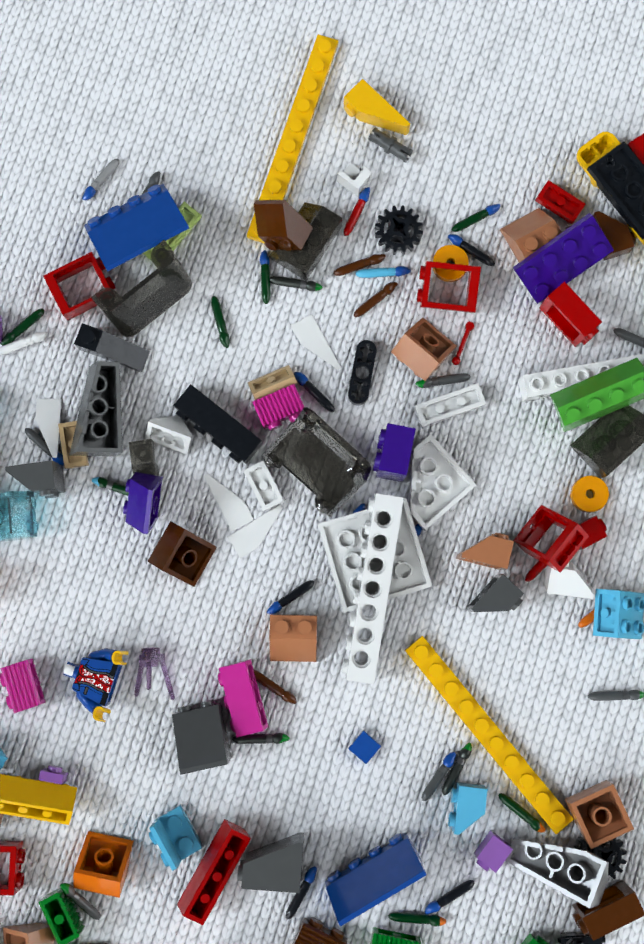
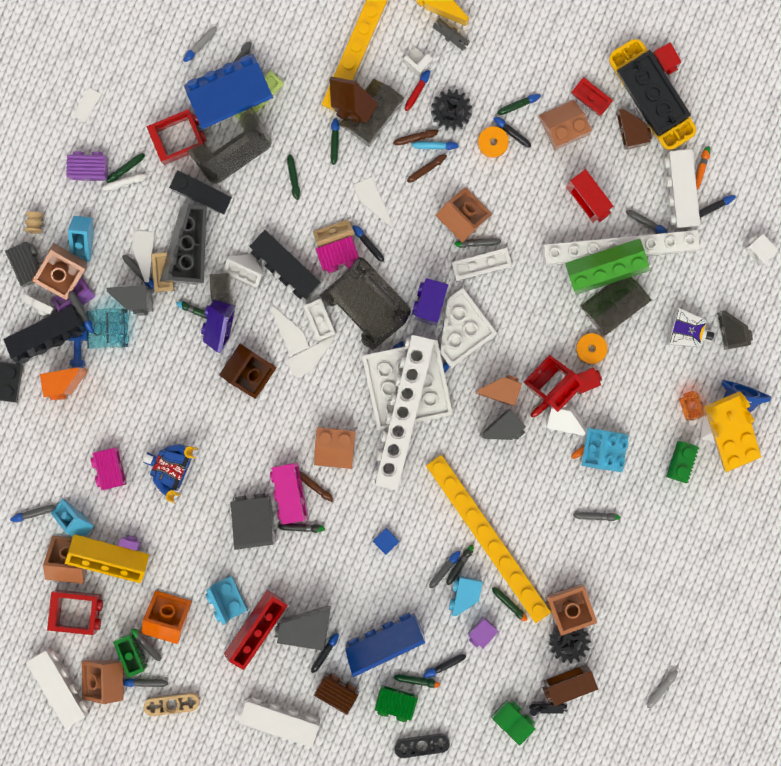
camera: 10 degrees right, 5 degrees up
(149, 659) = (214, 455): clear purple plant -> none
(287, 599) = (334, 414): black piece -> none
(295, 283) = (360, 149): pearl dark grey piece -> none
(370, 358) = (409, 216): black beam -> none
(469, 327) = (504, 198): red hinge -> none
(472, 288) = (470, 150): red window -> none
(563, 258) = (588, 147): dark purple plate -> none
(566, 869) = (540, 650): light grey wedge -> none

